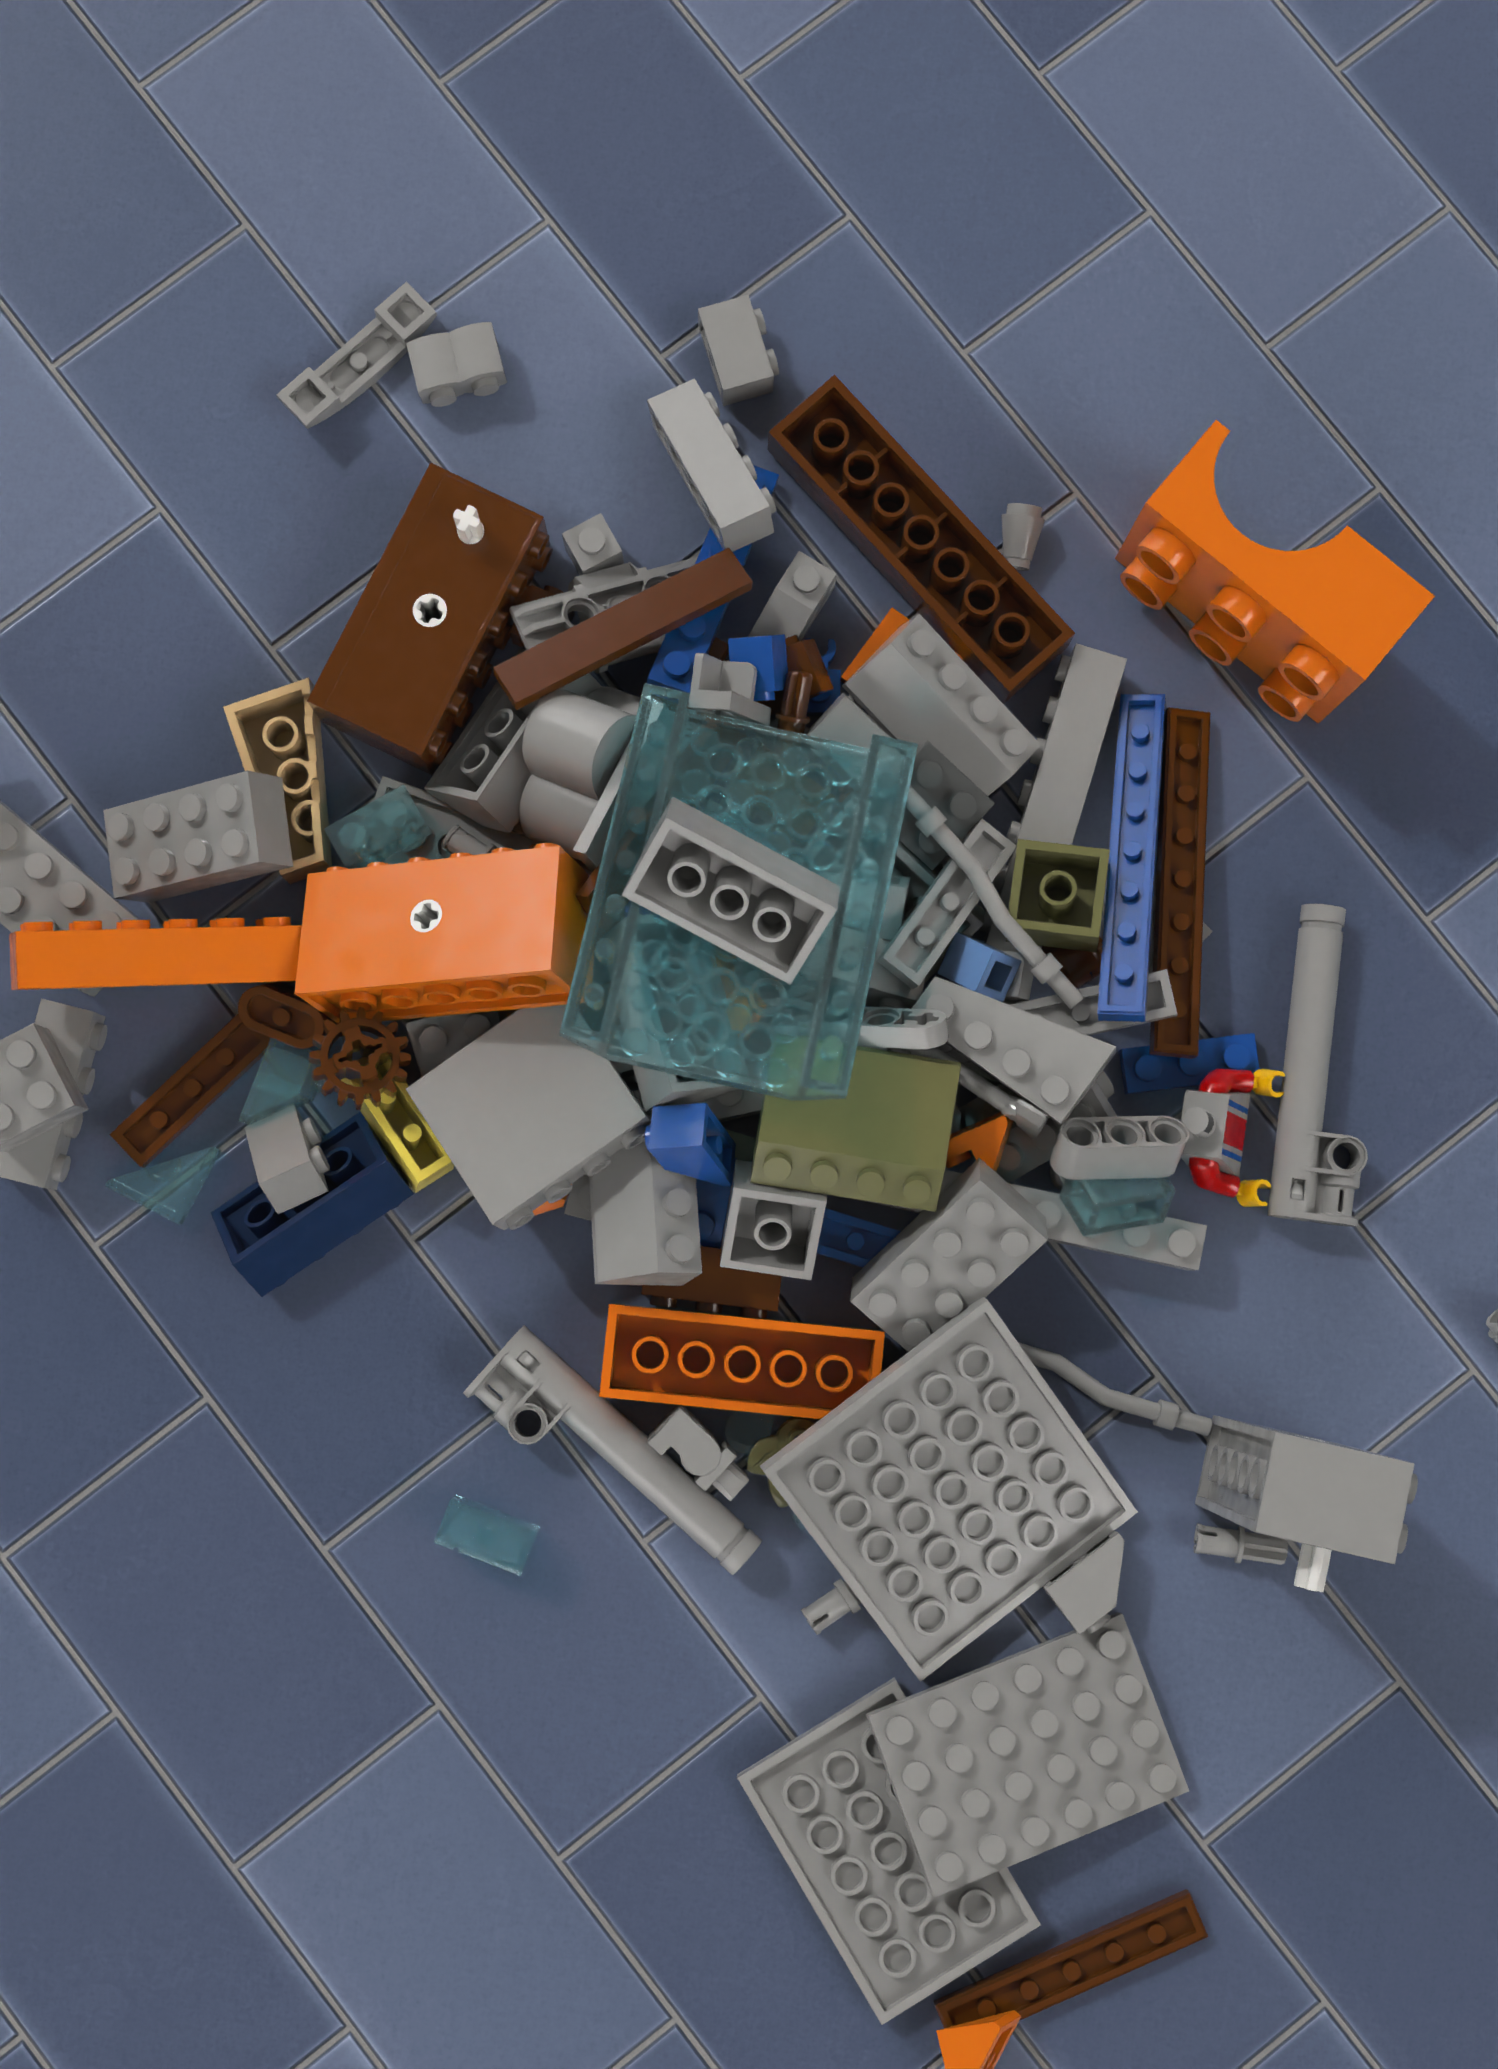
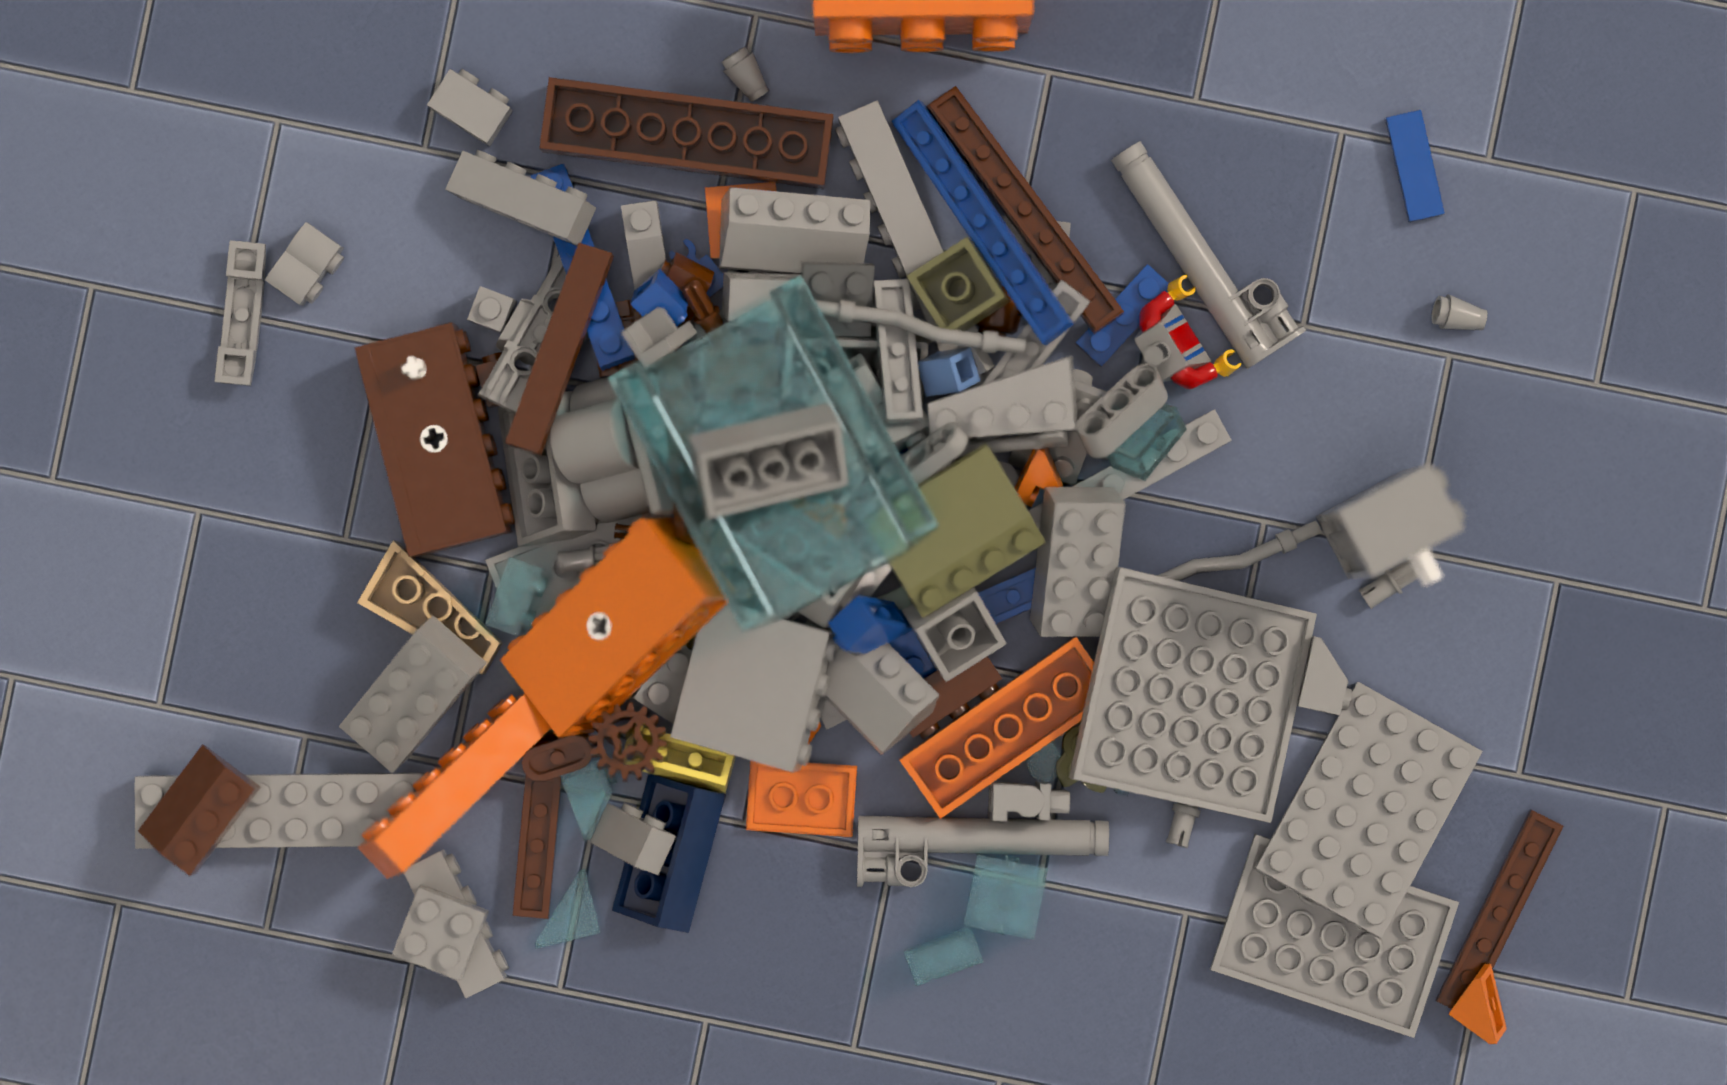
camera: 35 degrees left, 5 degrees up
(485, 1267) = (802, 802): none -> orange tile
(598, 1528) = (1005, 895): none -> clear light blue brick

